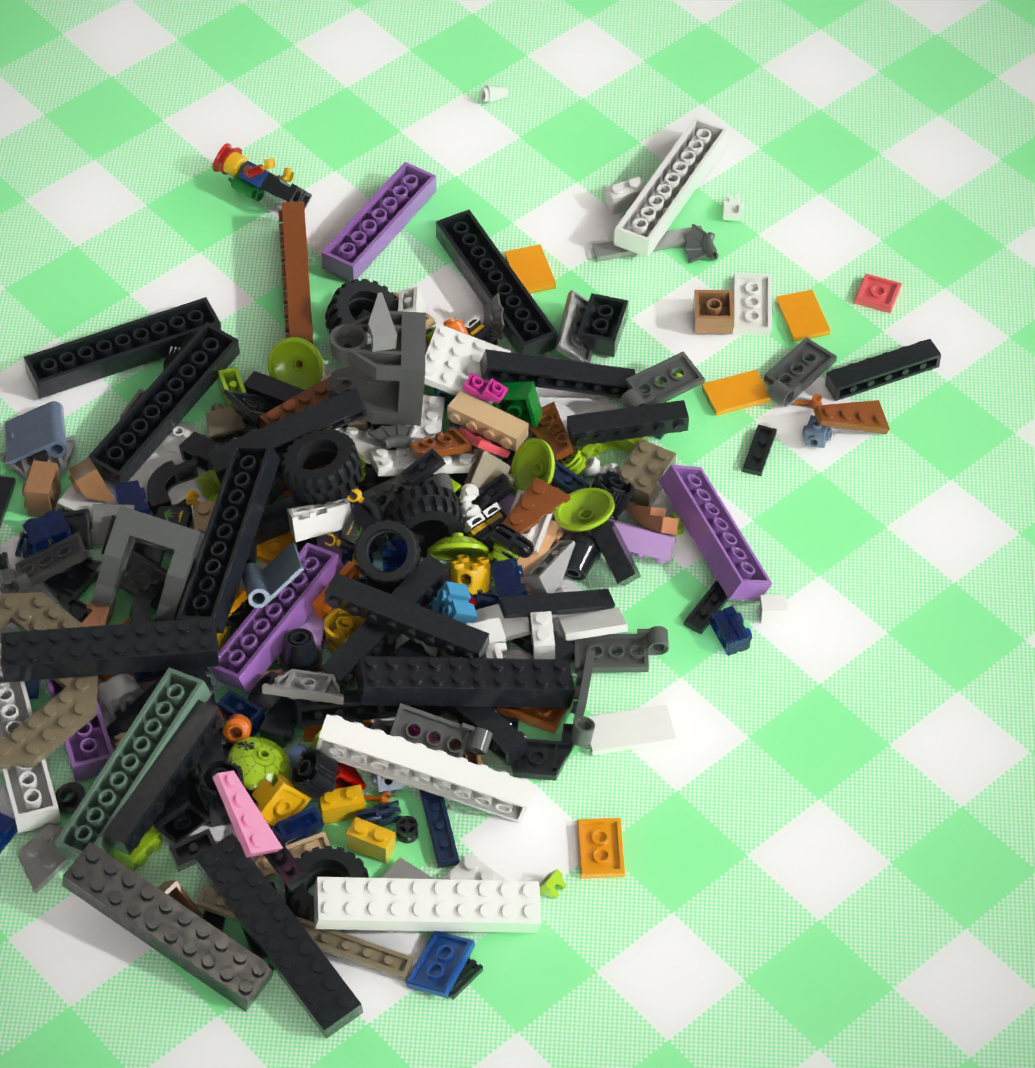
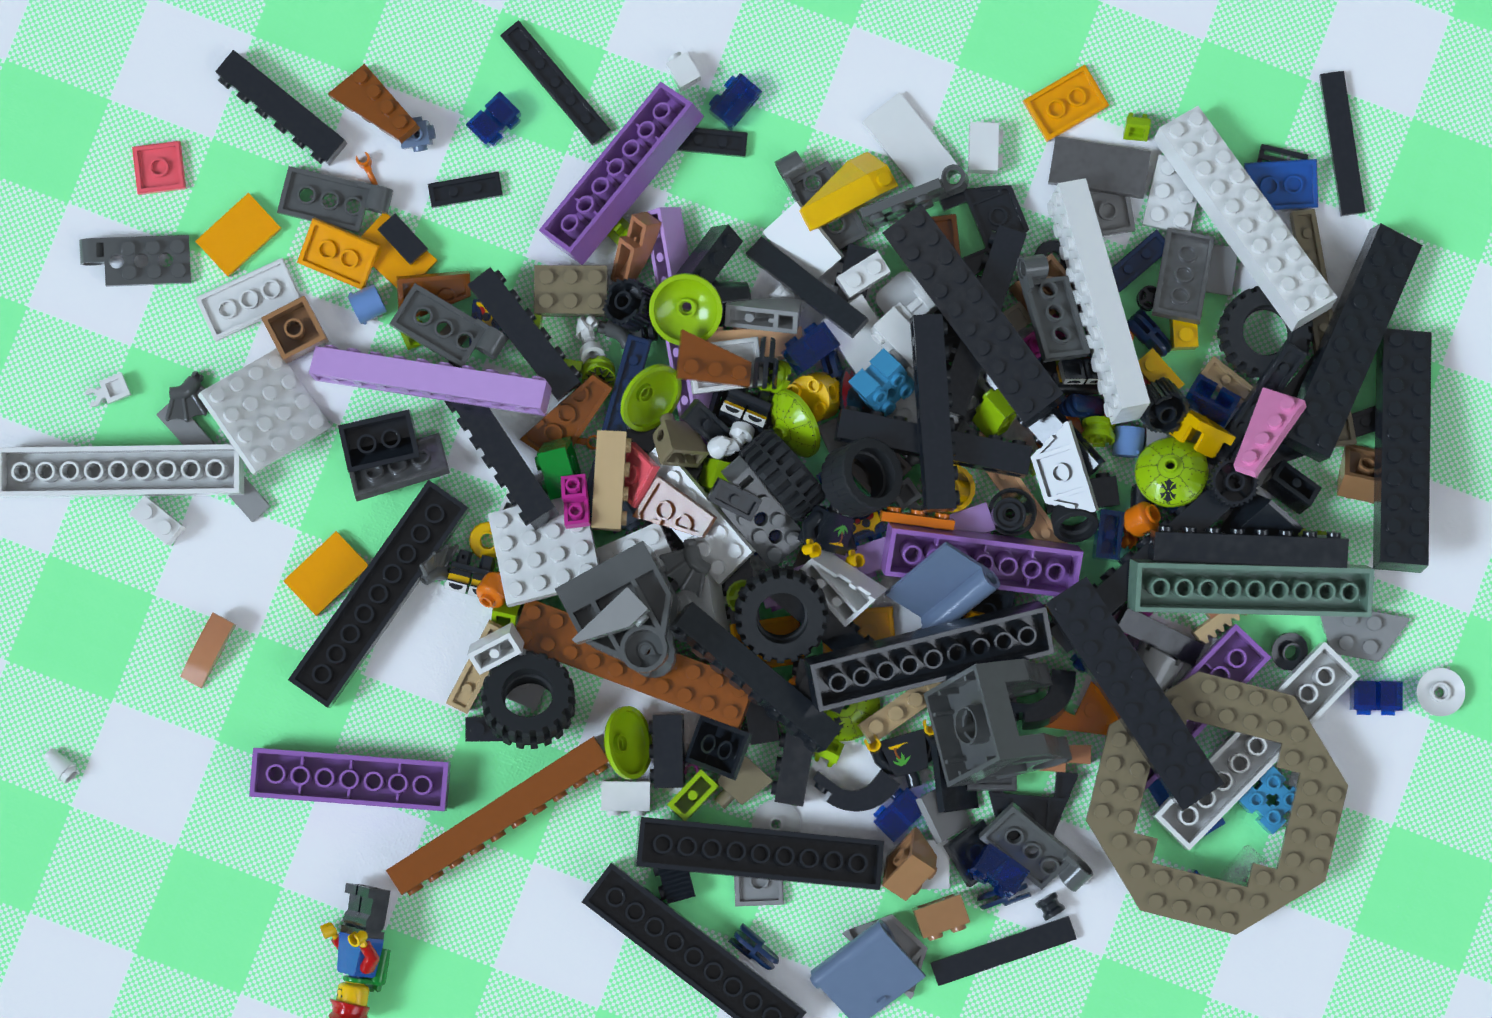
camera: 120 degrees left, 35 degrees up
(102, 385) = (753, 947): none -> dark blue arm
(257, 357) = (625, 796): none -> white brick
(407, 846) = (1183, 276): none -> flat silver tile
(448, 1027) = (1342, 143): none -> black tile
(495, 837) = (1113, 213): none -> light grey tile
(521, 190) = (207, 650): none -> nougat slope
(533, 842) = (1104, 166): none -> flat silver tile
(597, 772) = (984, 148): none -> white brick
(617, 670) = (849, 189): none -> yellow wedge
(626, 359) = (431, 380): none -> lavender brick
(663, 269) = (264, 411): none -> white plate
(697, 397) = (447, 286): none -> dark orange wing
(708, 358) = (367, 303): none -> medium blue piece
(743, 396) = (402, 239): none -> black tile
(754, 358) = (338, 253): none -> light orange tile
(802, 486) = (494, 121): none -> clear blue piece
(810, 533) = (555, 83): none -> black tile
(836, 237) = (100, 251): none -> dark grey hinge

